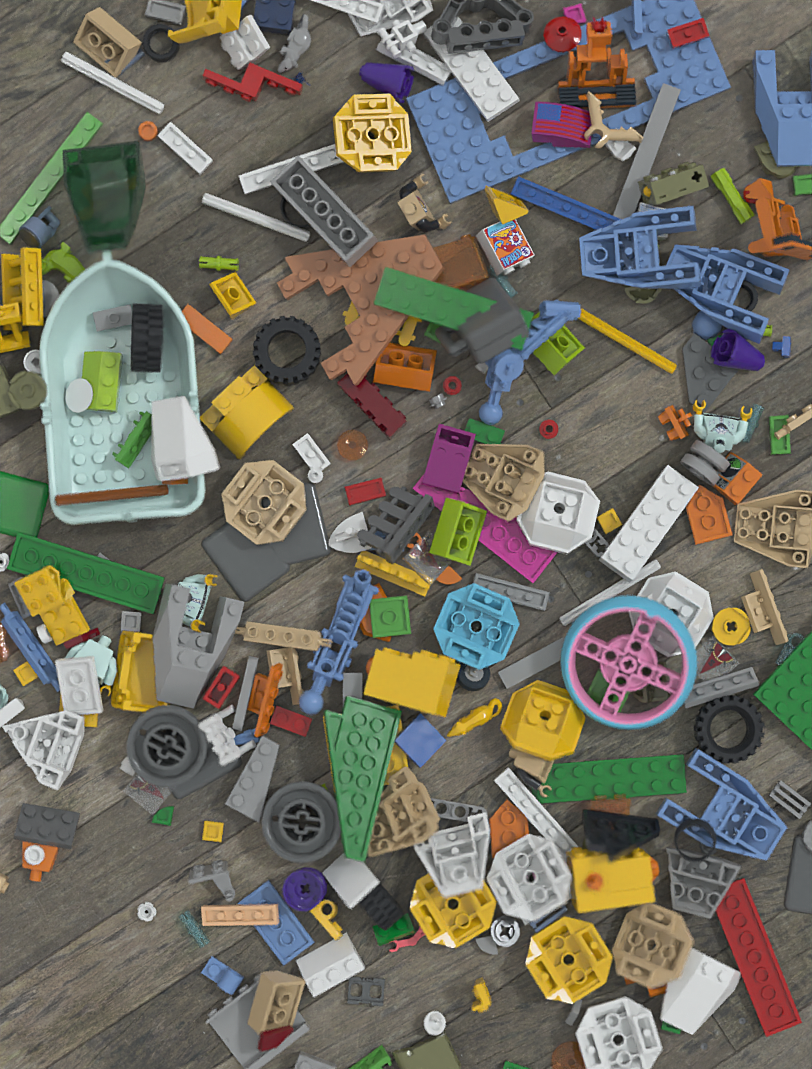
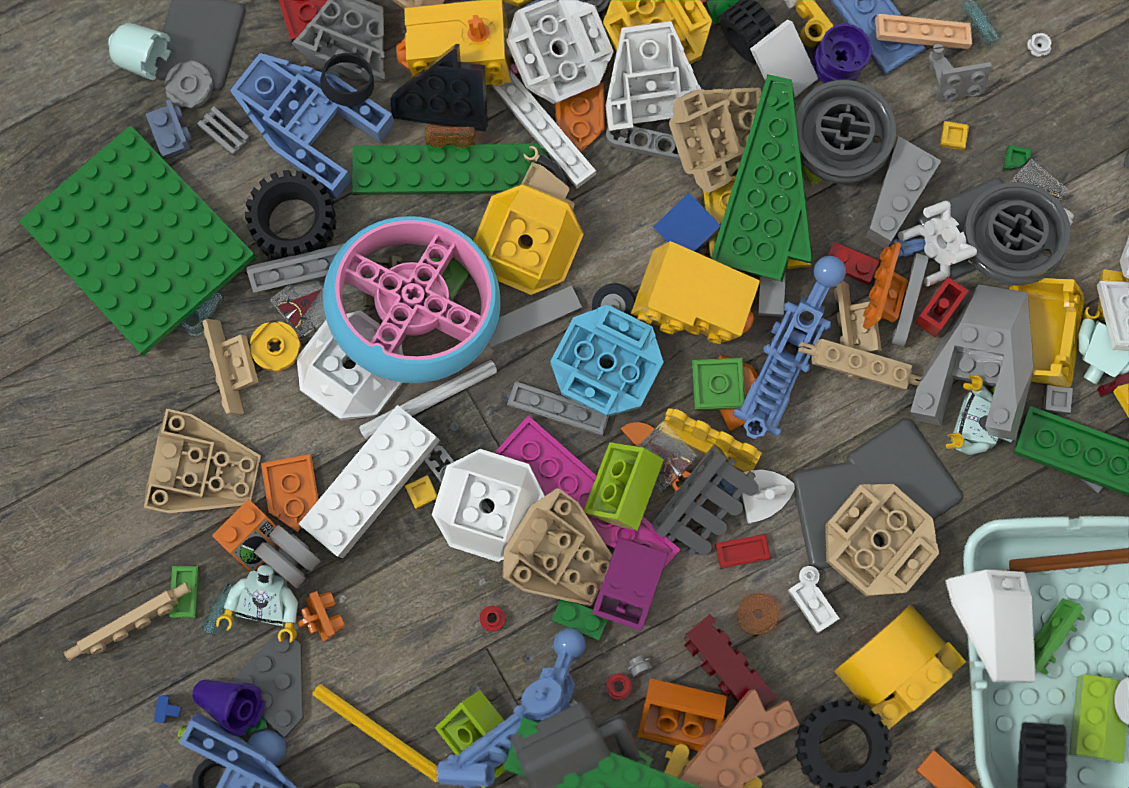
camera: 170 degrees left, 10 degrees down
(477, 717) = (611, 252): yellow animal -> none

